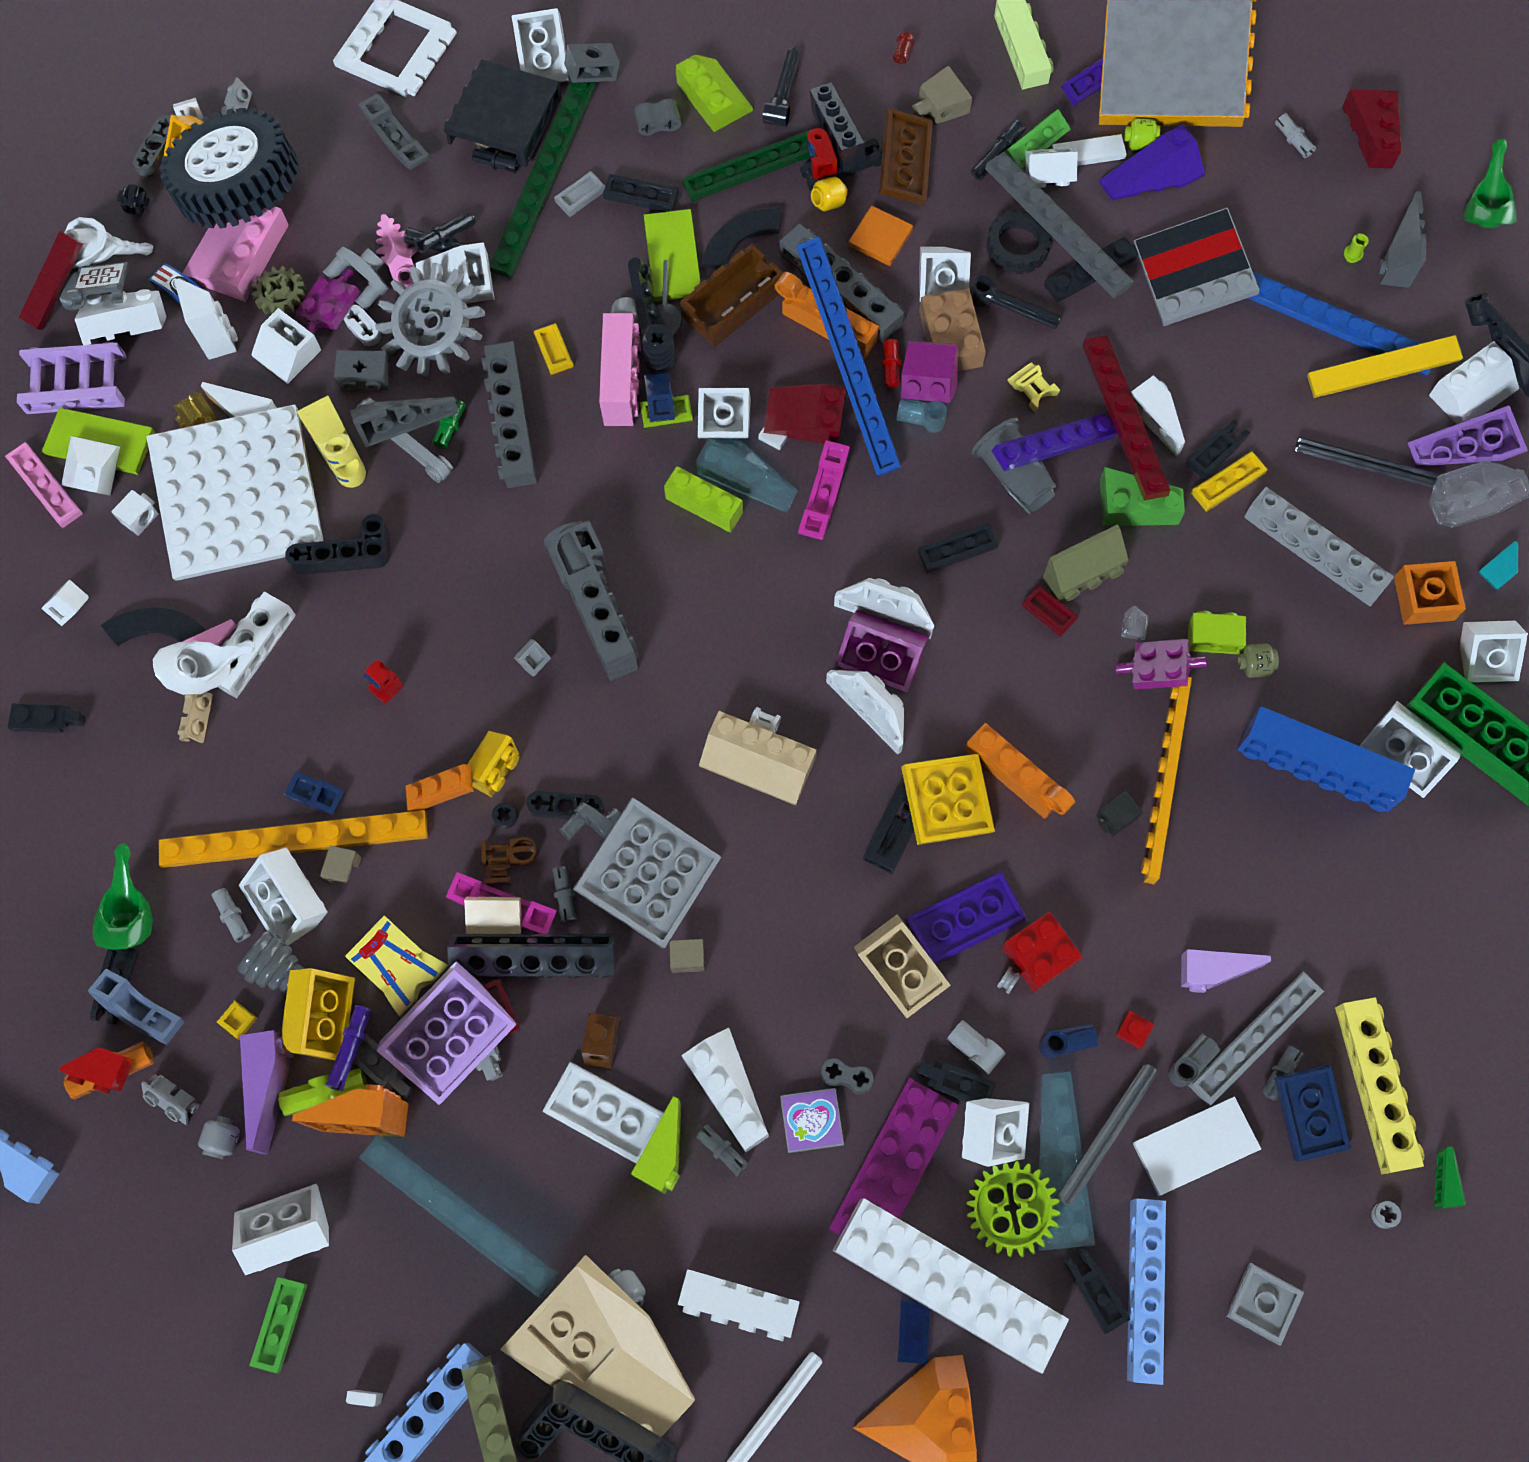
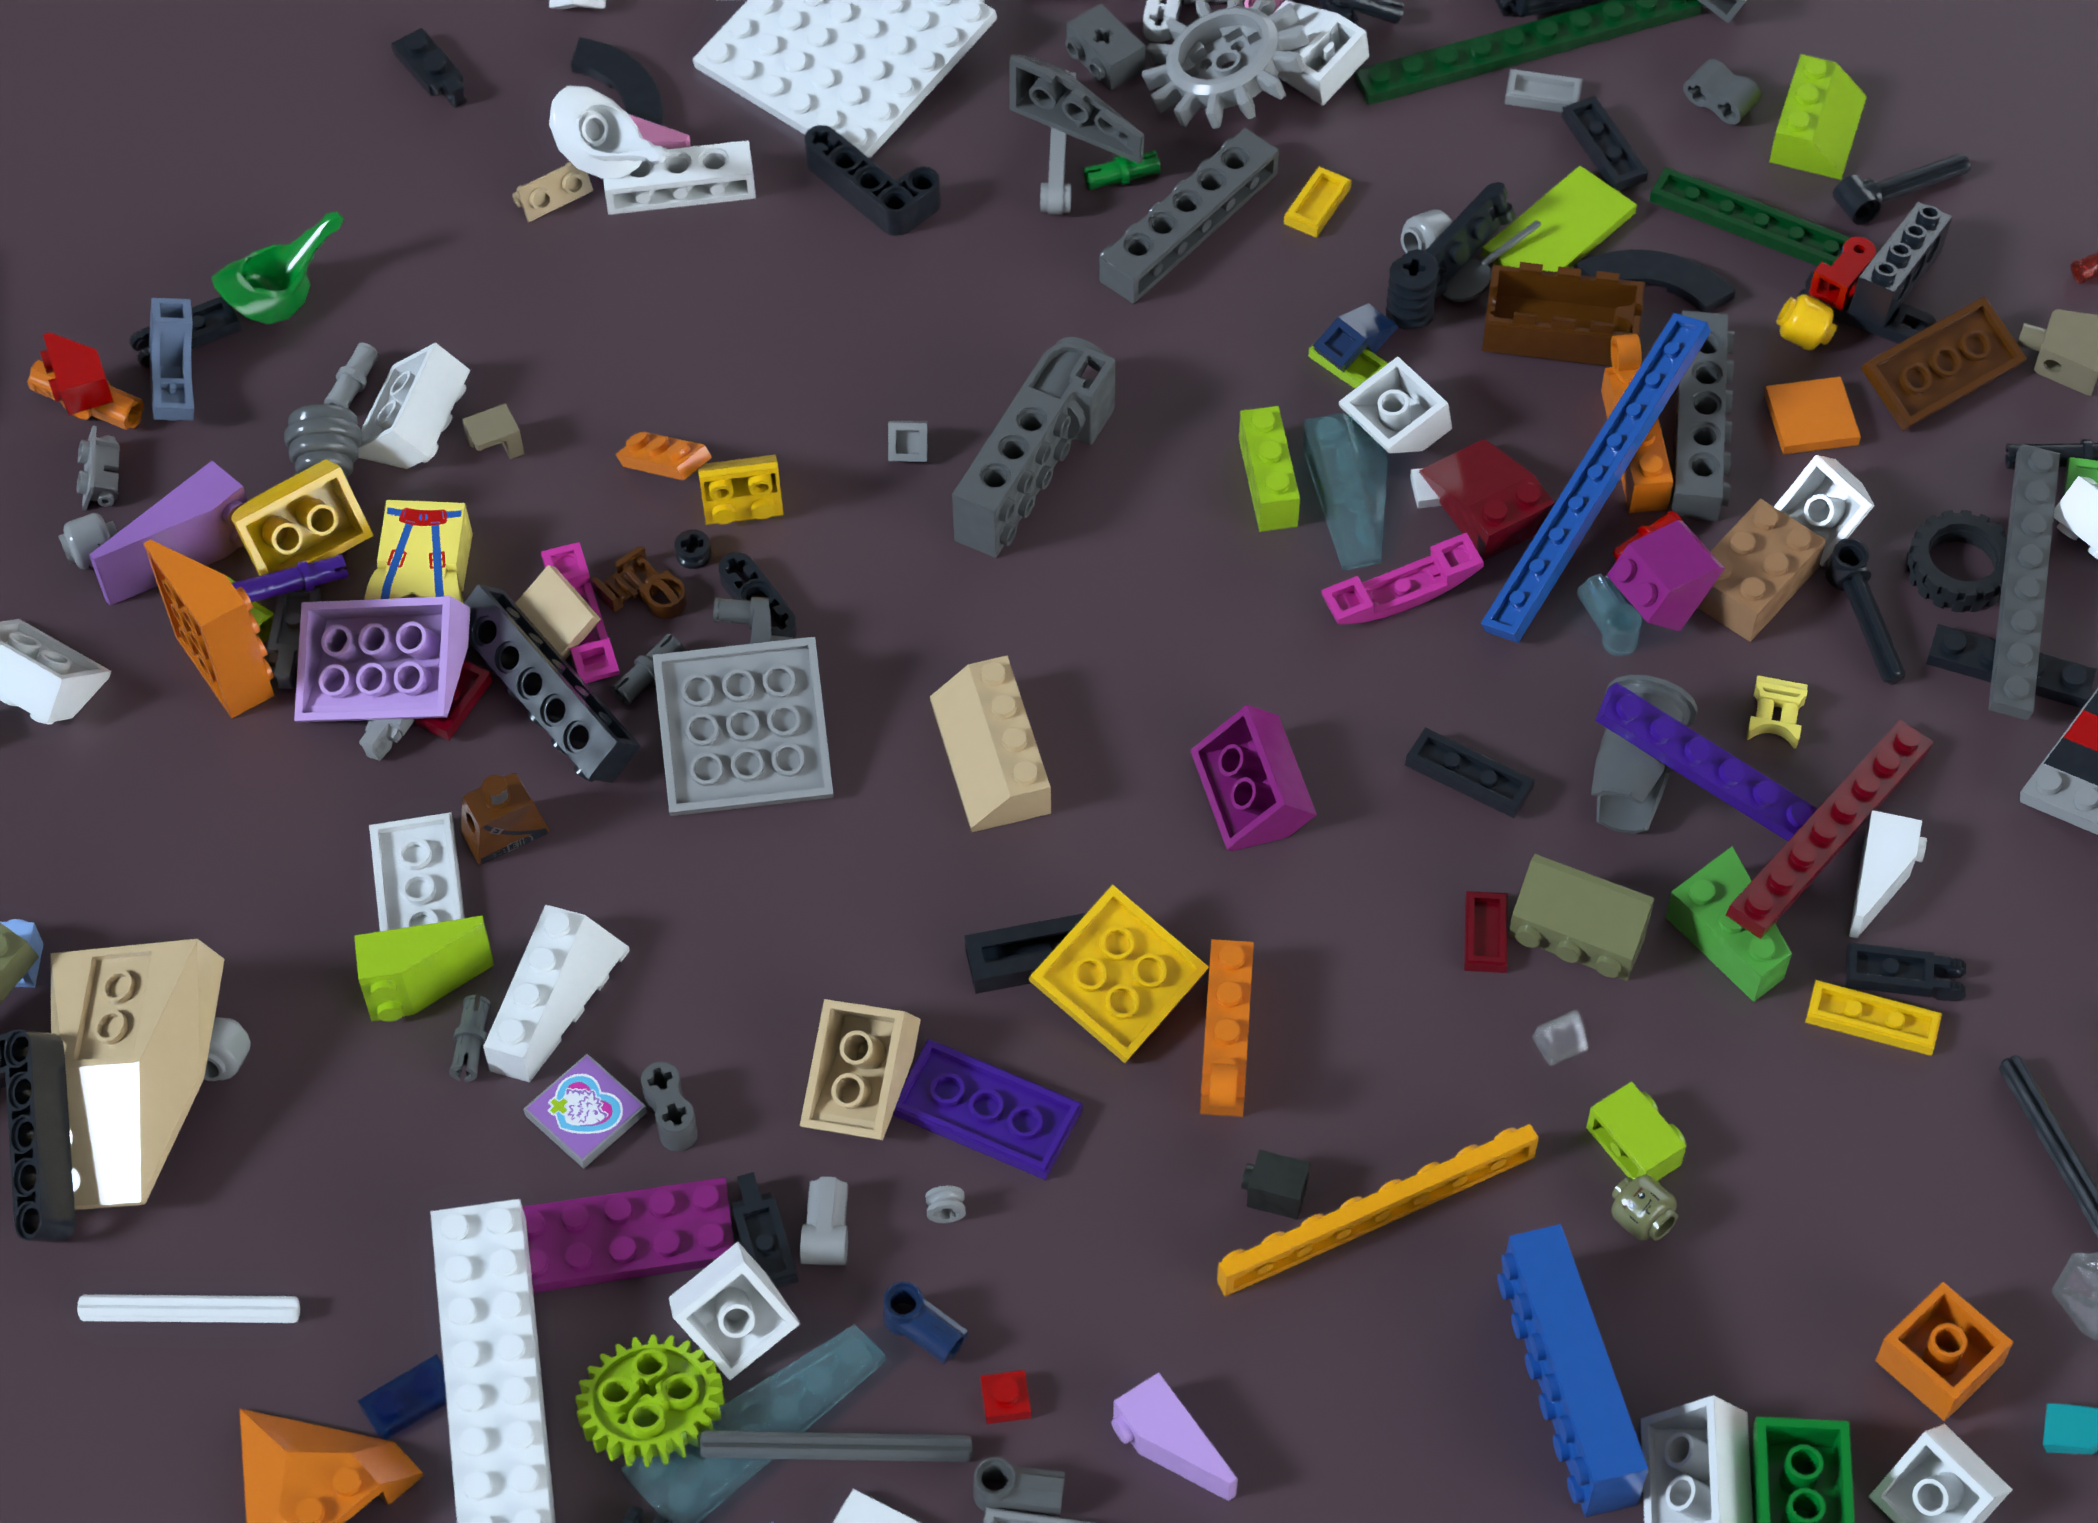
camera: 50 degrees right, 15 degrees down
(237, 1019) = (241, 466): yellow tile -> none
(295, 838) = (494, 378): light orange plate -> none
(314, 793) = (559, 355): dark blue slope -> none
(333, 442) = (983, 76): light yellow piece -> none
(383, 681) = (745, 319): red leg -> none
(460, 1216) = (180, 809): clear light blue brick -> none
(619, 369) = (1342, 270): bright pink brick -> none
(687, 956) = (678, 839): dark tan panel -> none
(739, 1304) = (296, 1179): white wedge -> none
(765, 720) = (1056, 731): white bush -> none
(872, 703) = (1172, 819): white wedge -> none
(886, 602) = (1317, 742): white wedge -> none
(1041, 952) = (1012, 1214): red brick -> none
(1161, 664) = (1526, 1094): magenta plate -> none
(1318, 546) = (1879, 1177): light grey brick -> none

